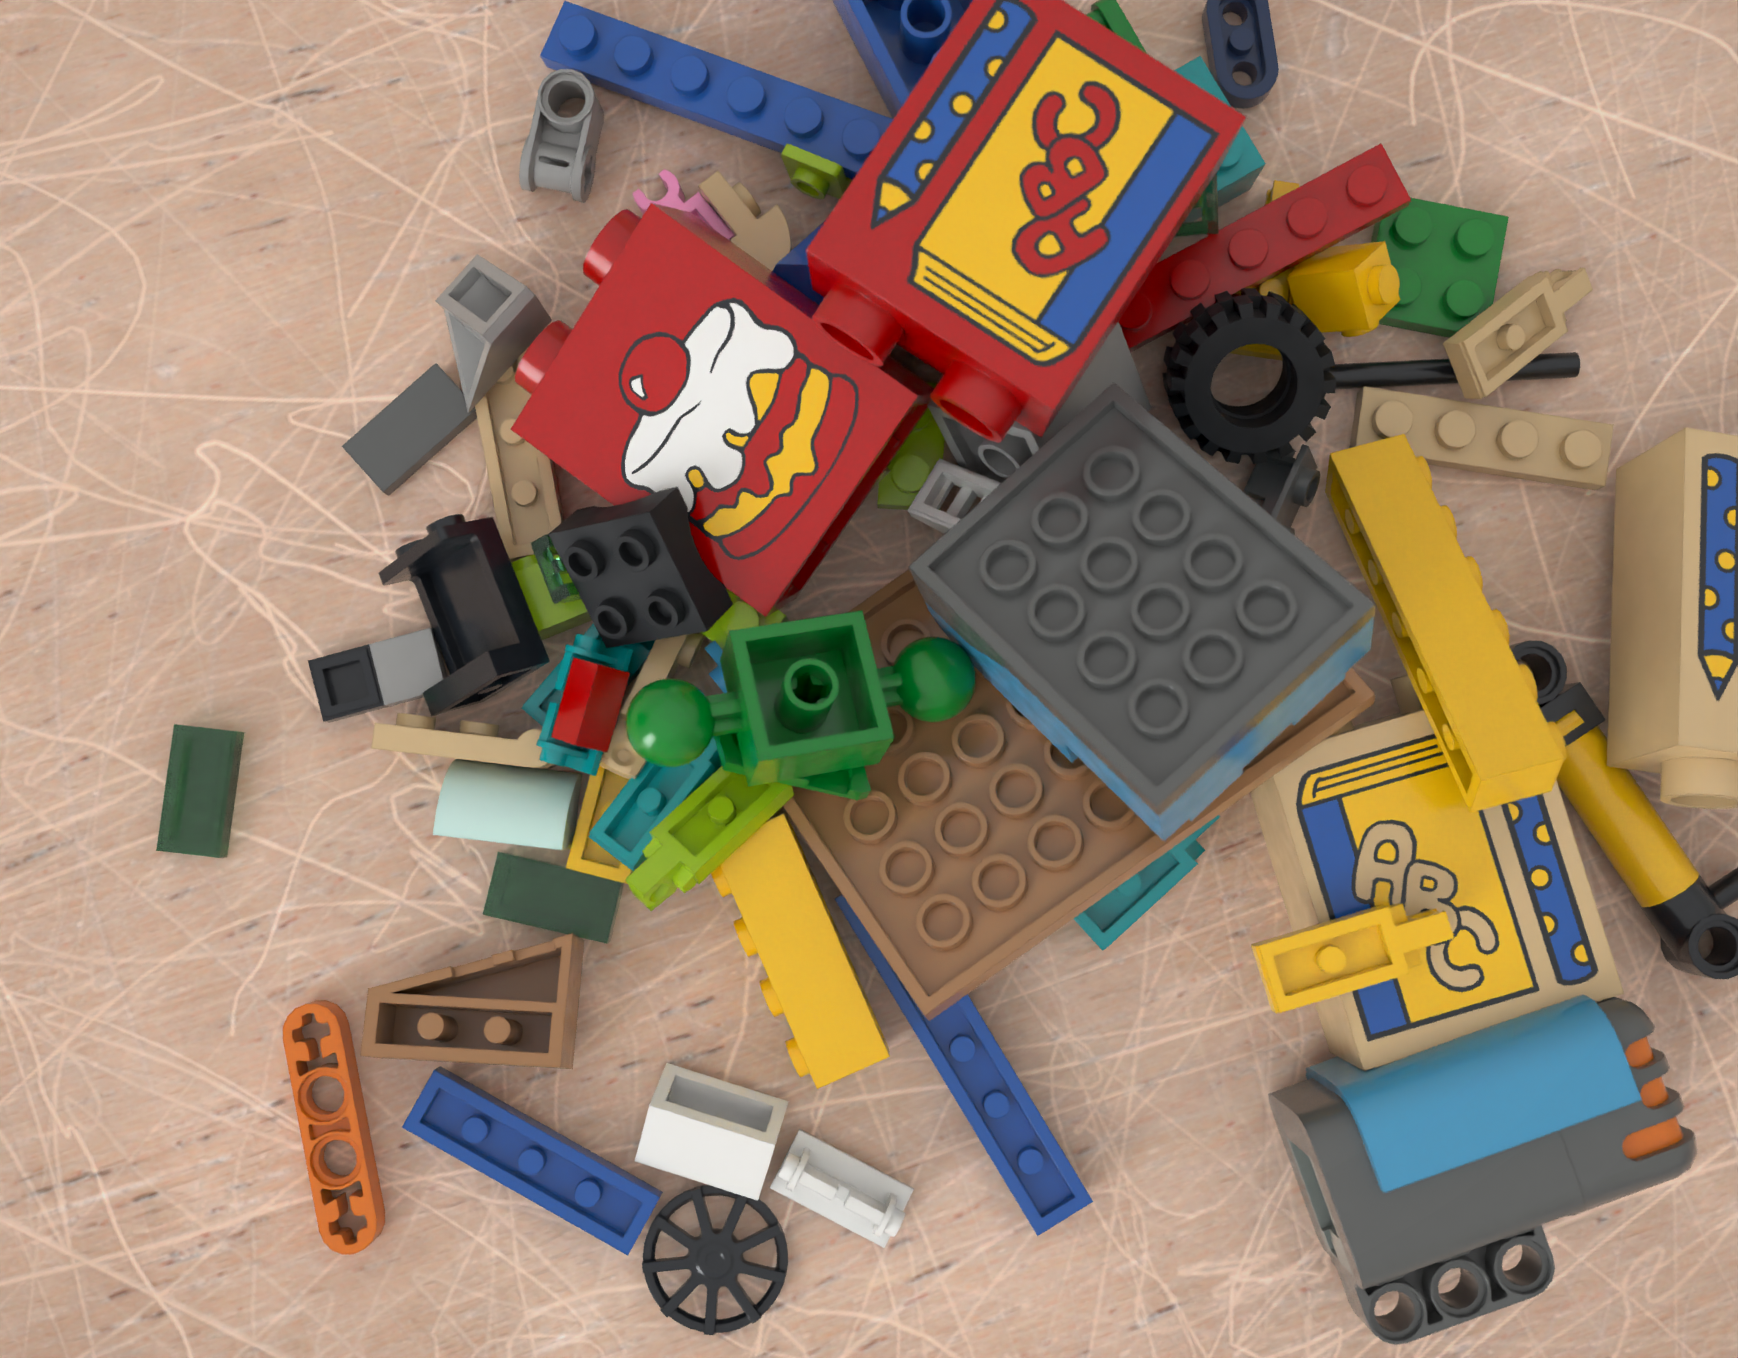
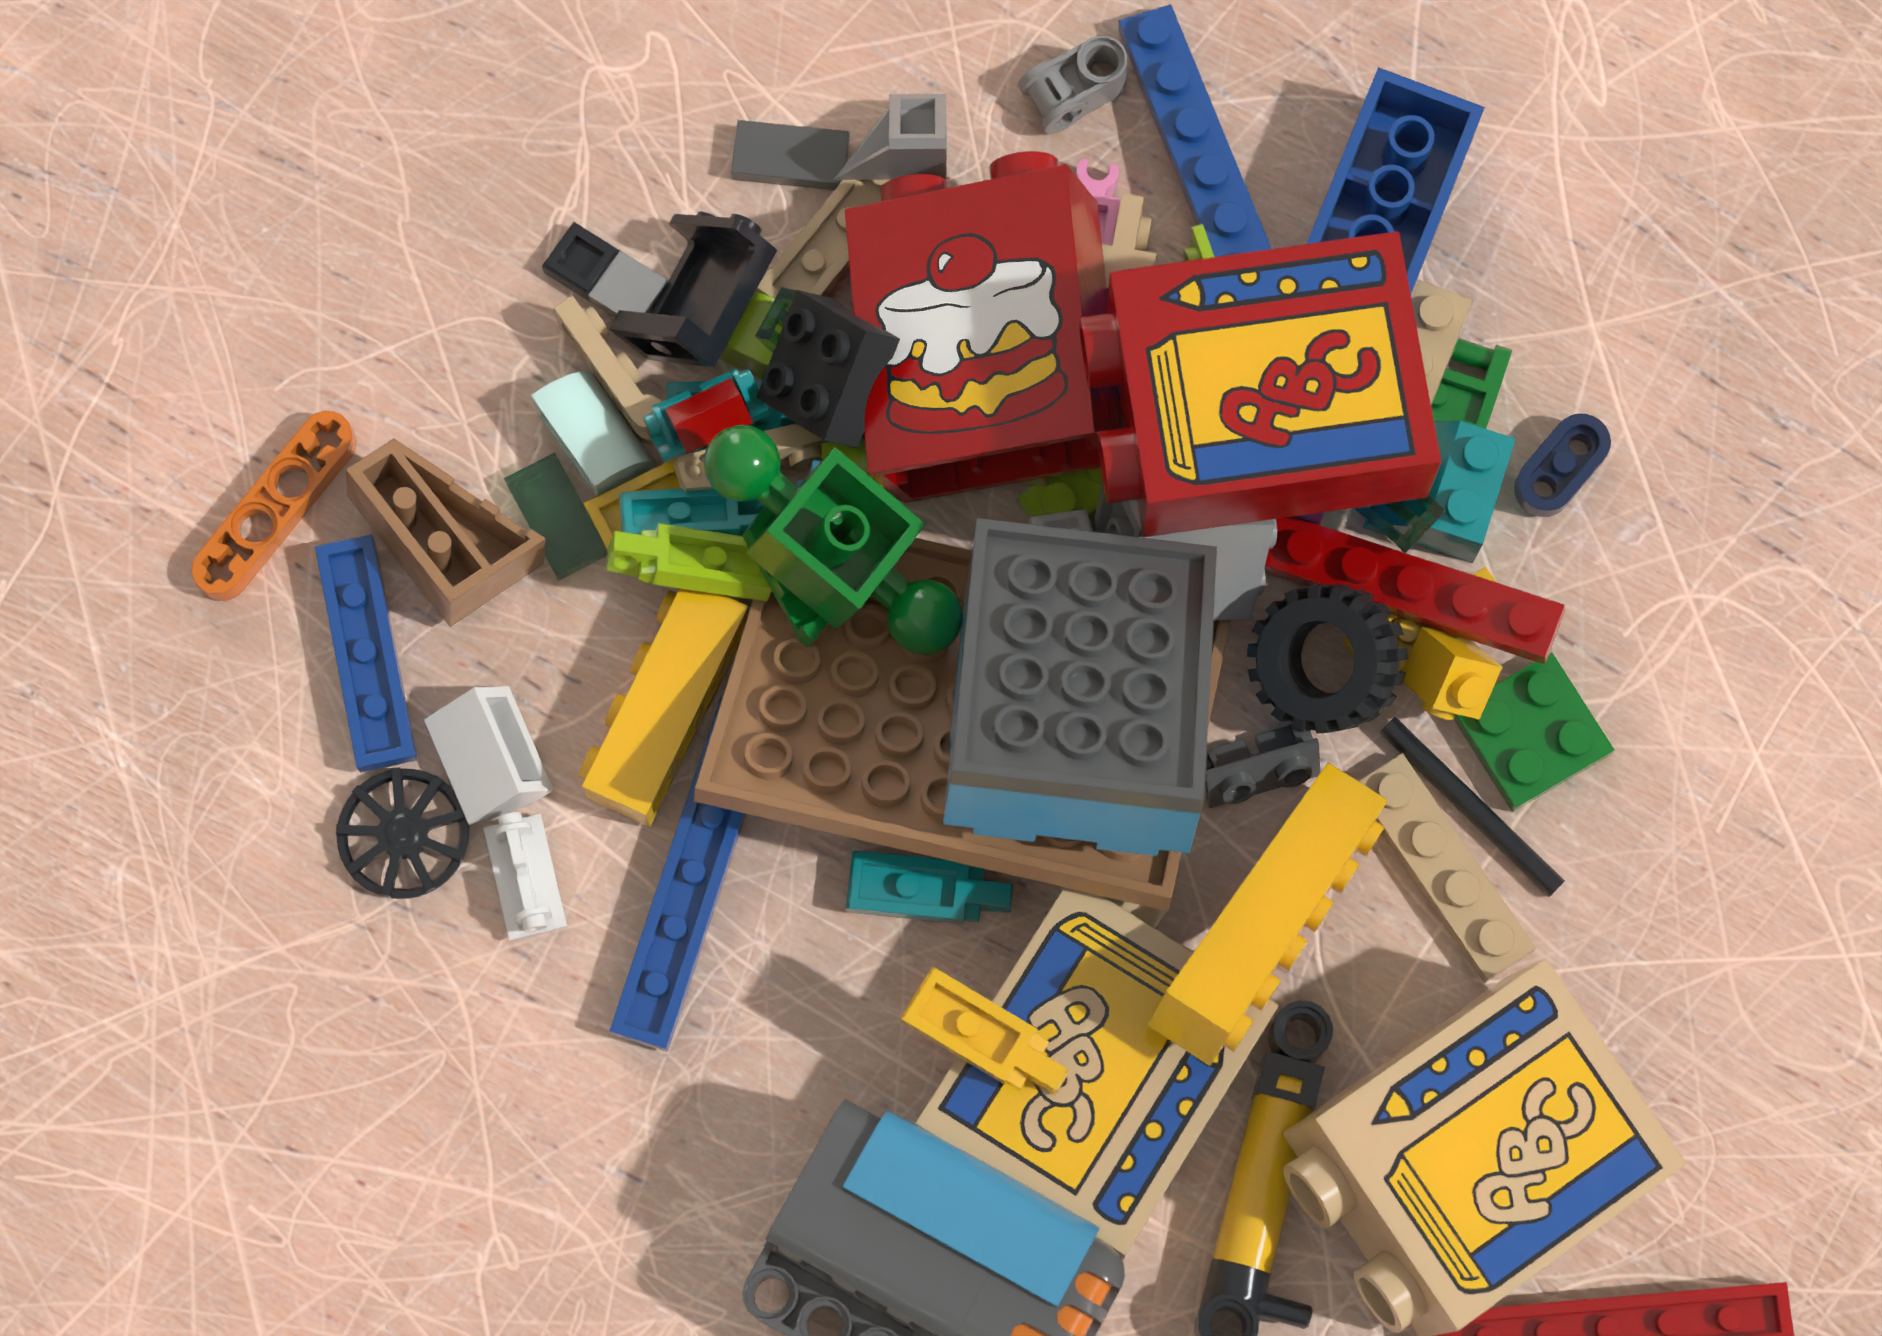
camera: 45 degrees right, 10 degrees down
(200, 791) = (424, 229): clear green tile -> none
(1514, 330) = (1534, 816): tan hinge -> none

